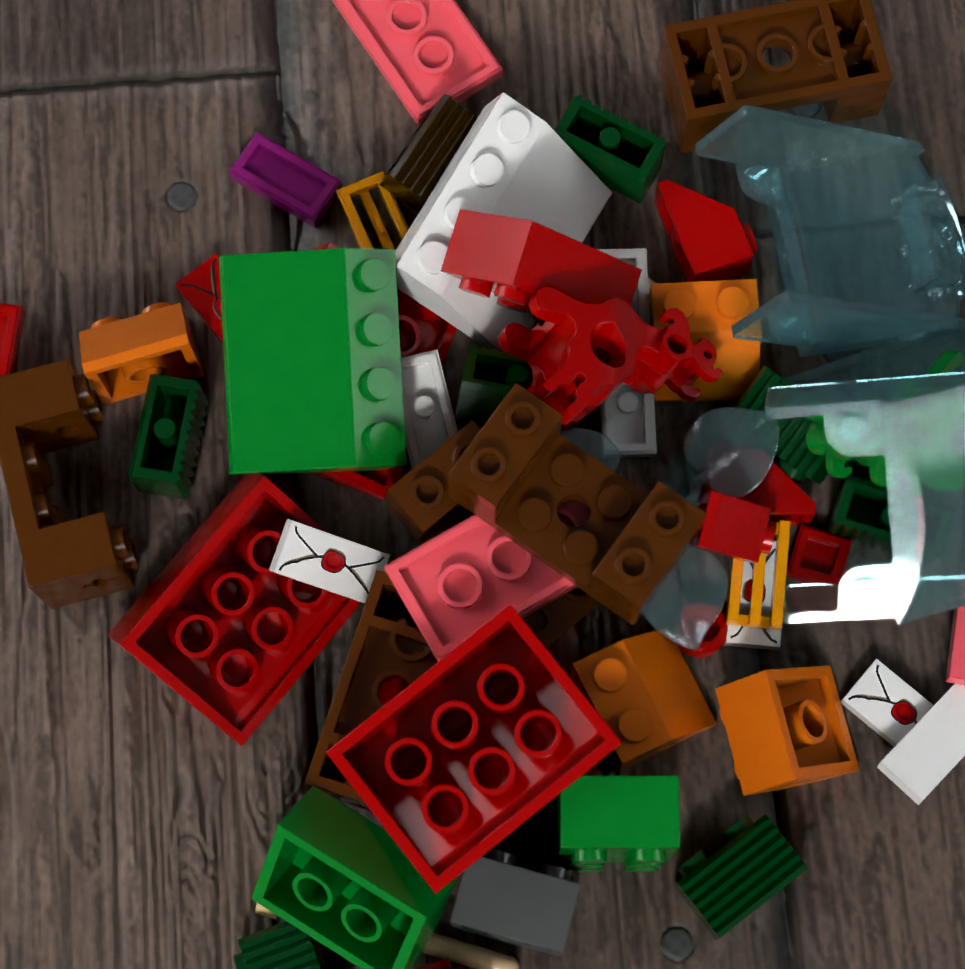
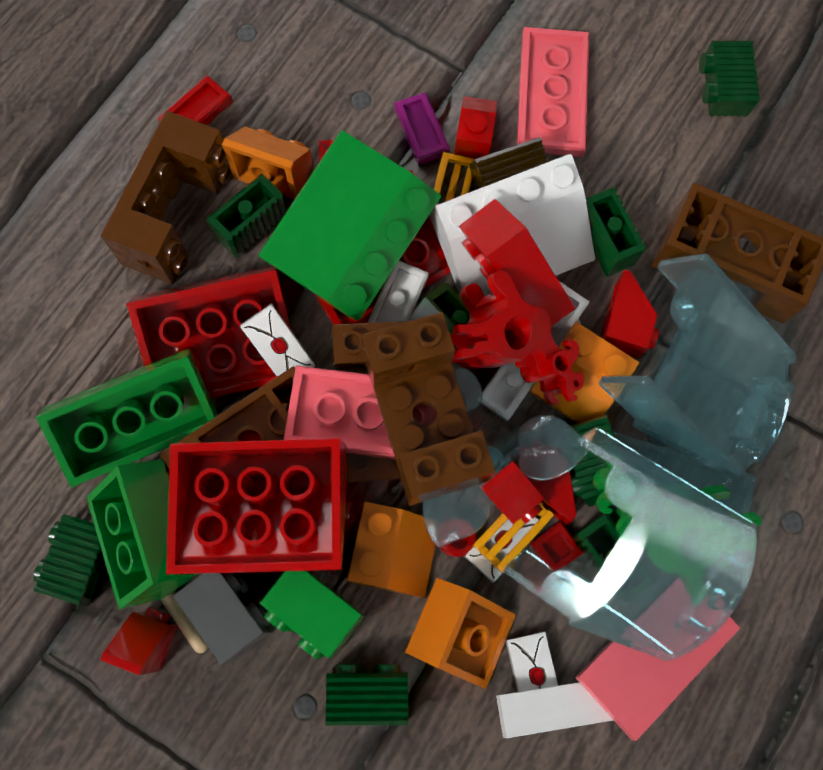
camera: 30 degrees right, 0 degrees up
(226, 771) = (127, 417): none -> green brick
(352, 132) = (475, 127): none -> red slope

